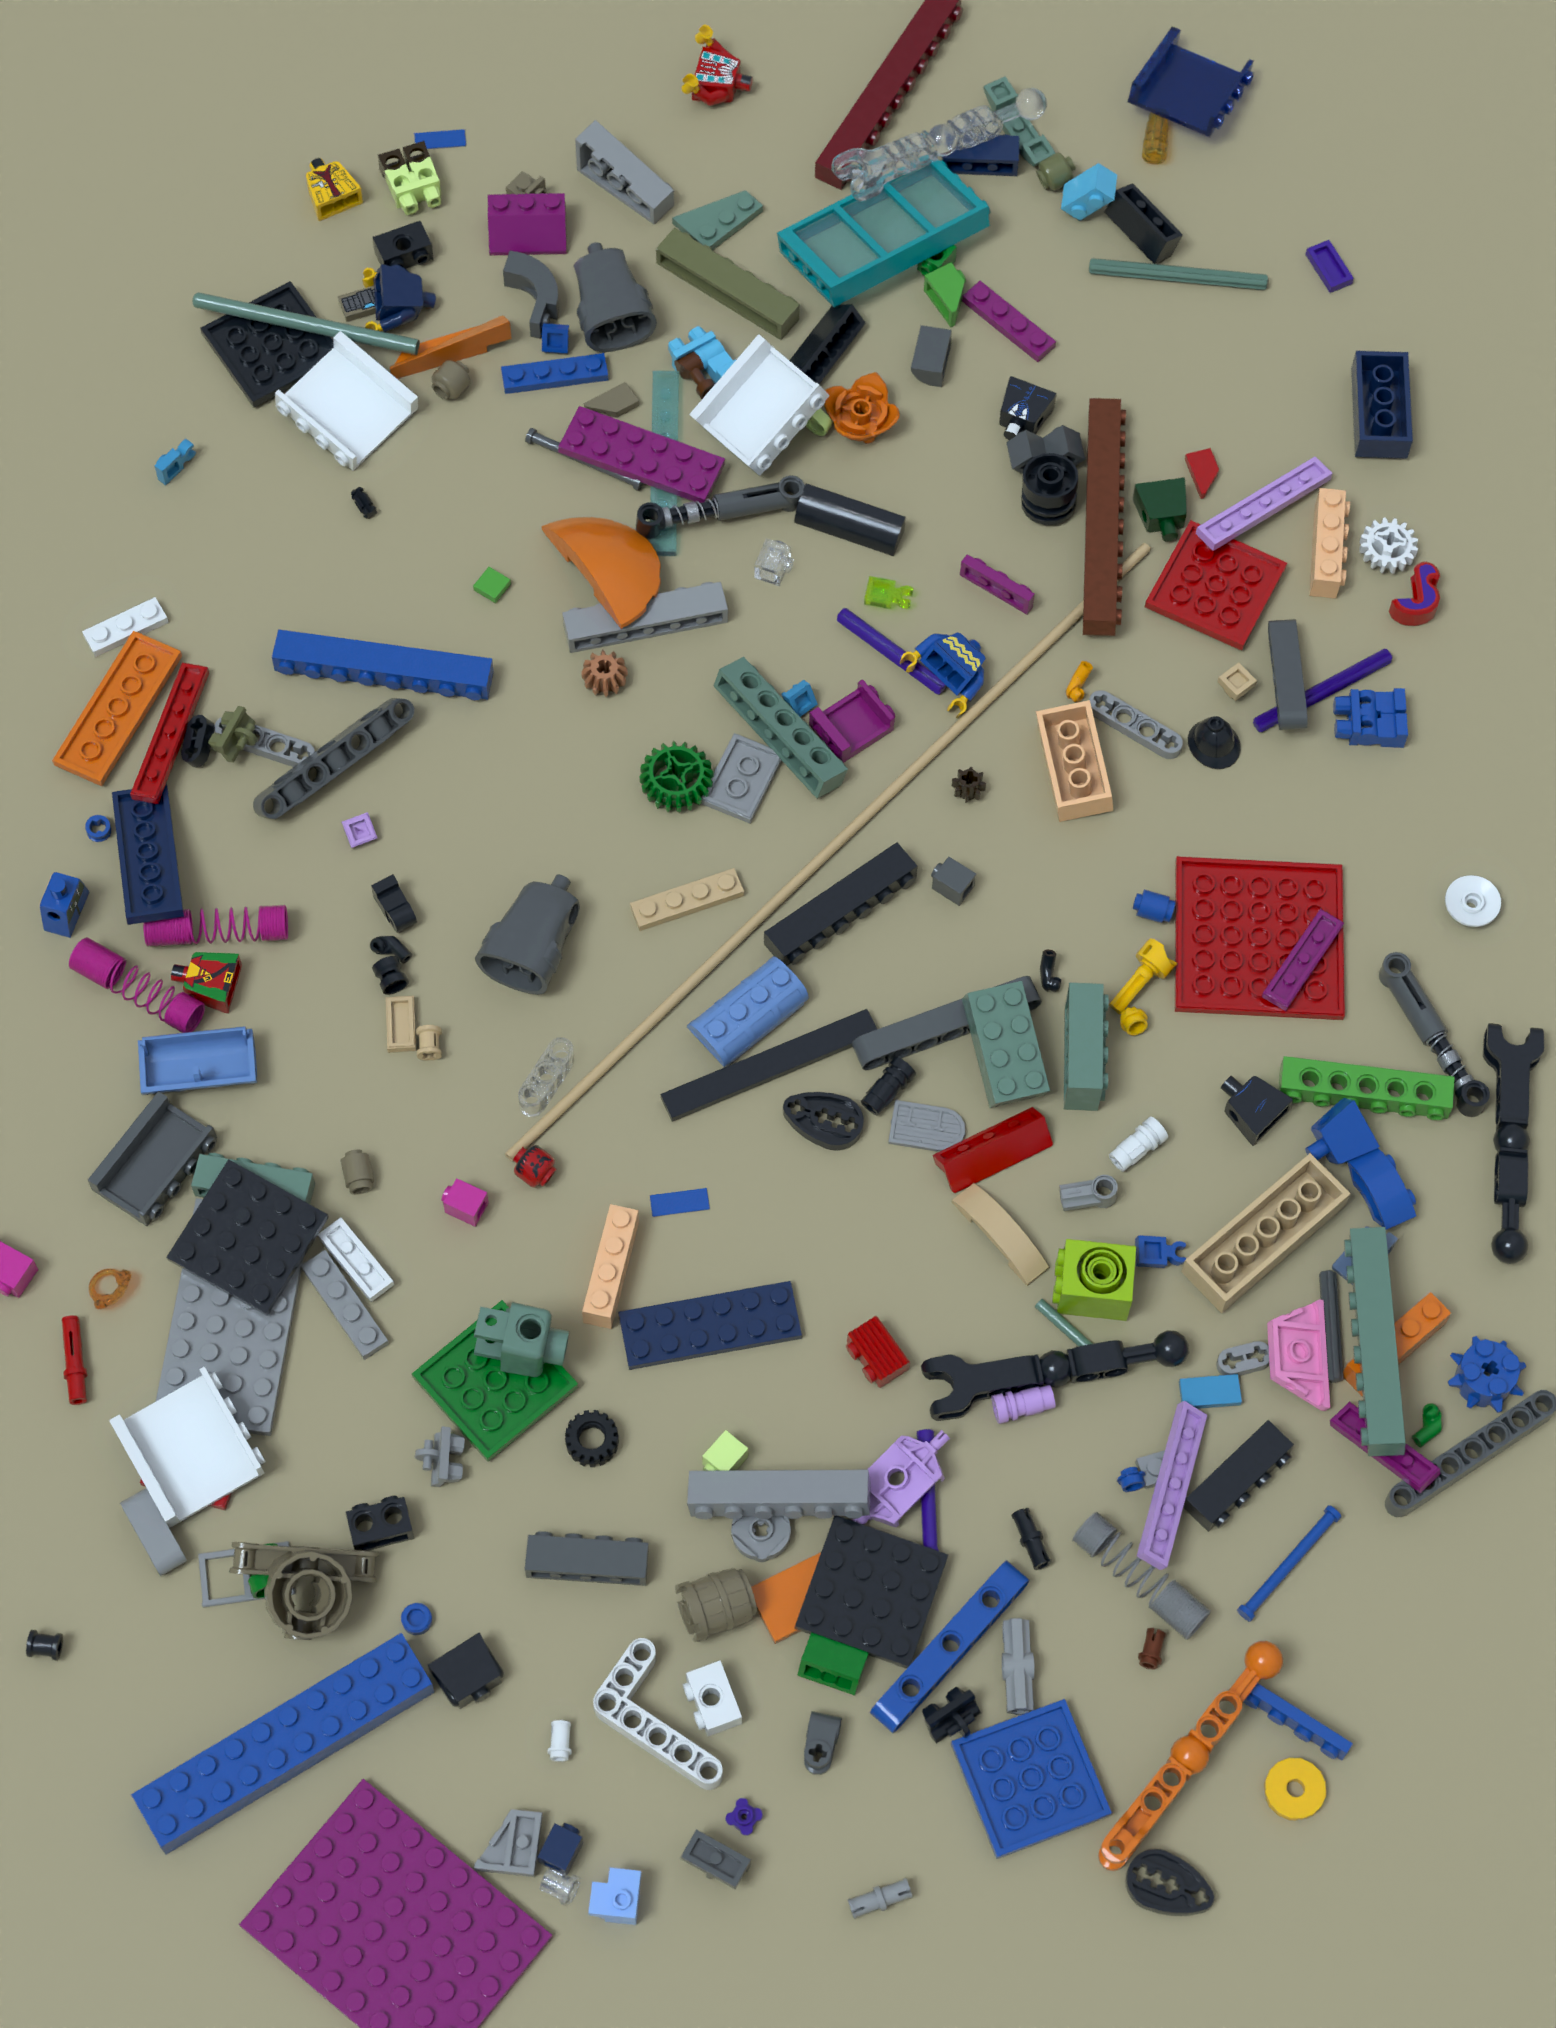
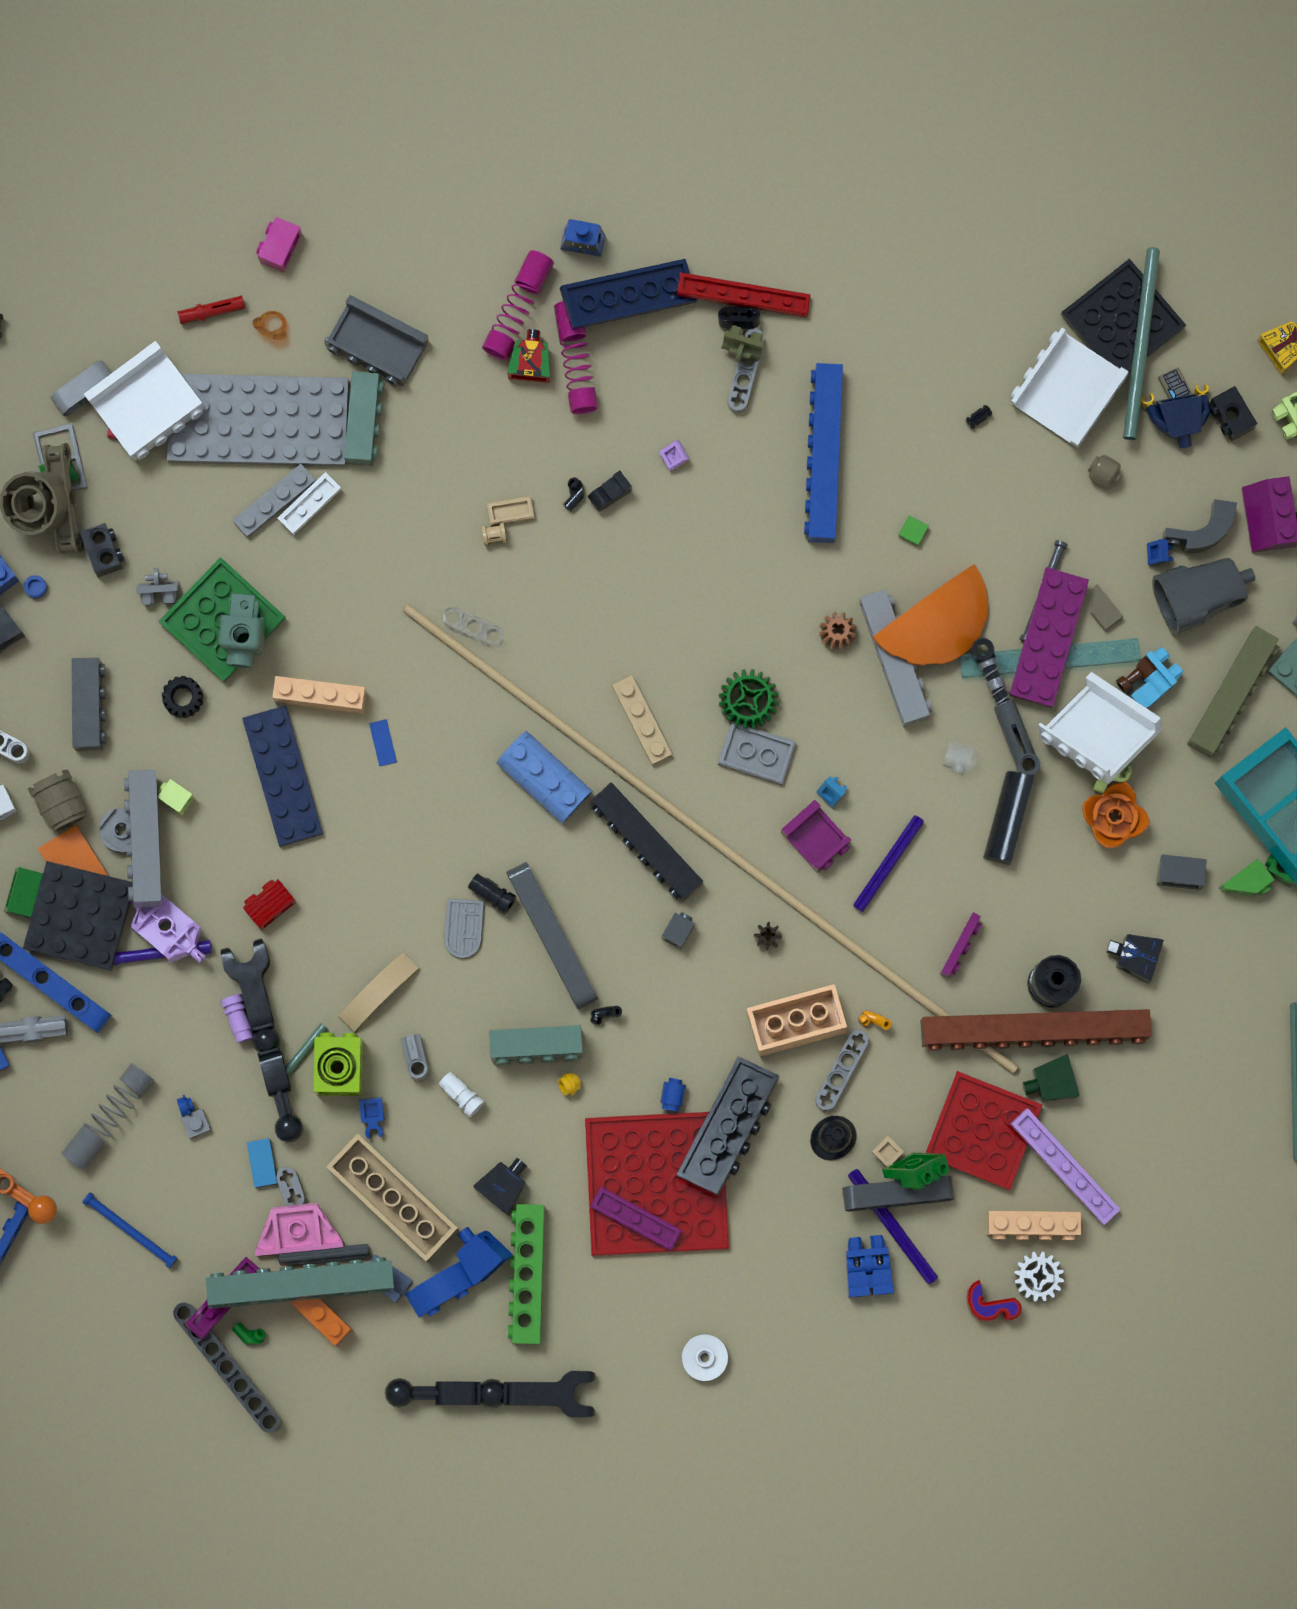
camera: 85 degrees right, 15 degrees up
(99, 836) = (649, 255): blue bush -> none
(117, 708) = (762, 250): orange plate -> none
(118, 629) = (839, 245): white plate -> none
(172, 463) = (994, 255): dark azure plate -> none
(197, 1060) = (456, 361): medium blue container -> none
(247, 1237) = (313, 419): black plate -> none
(333, 758) = (733, 426): dark grey beam -> none
(357, 1172) = (380, 494): dark tan brick -> none
(390, 975) = (552, 493): black wheel -> none
(452, 347) = (1140, 469): orange wedge -> none
(465, 1202) = (363, 578): dark pink brick -> none
(530, 938) = (591, 600): dark grey torso -> none
(534, 1166) = (397, 627): red head -> none
(554, 373) = (1126, 556): blue plate -> none
(766, 1065) = (504, 800): black tile -> none
(780, 727) = (757, 813): sand green brick -> none
(823, 1134) = (448, 847): black piece -> none
(828, 341) = (1176, 778): black brick -> none
(883, 592) = (941, 851): clear neon green plate -> none
(954, 662) = (876, 914): blue torso -> none
(994, 1149) = (448, 980): red panel -> none
(1005, 1044) = (530, 981): sand green brick -> none
(1008, 321) = (1229, 937): magenta plate -> none
(1029, 445) = (1097, 984): dark grey brick -> none
(1031, 1539) = (131, 1032): black pin -> none
(1152, 1648) = (53, 1129): copper pin -> none
(1153, 962) = (619, 1095): yellow piece -> none
(1172, 1485) = (177, 1135): lavender plate -> none
(1199, 843) = (729, 1127): none -> black plate
(1202, 469) = (1098, 1114): red tile -> none
(1238, 1475) = (193, 1187): black brick -> none
(1262, 643) = (918, 1169): none -> green plate
(1381, 404) = (1178, 1264): dark blue brick -> none
(1432, 1031) = (583, 1326): piece -> none
(1483, 1389) = (304, 1372): blue brick -> none

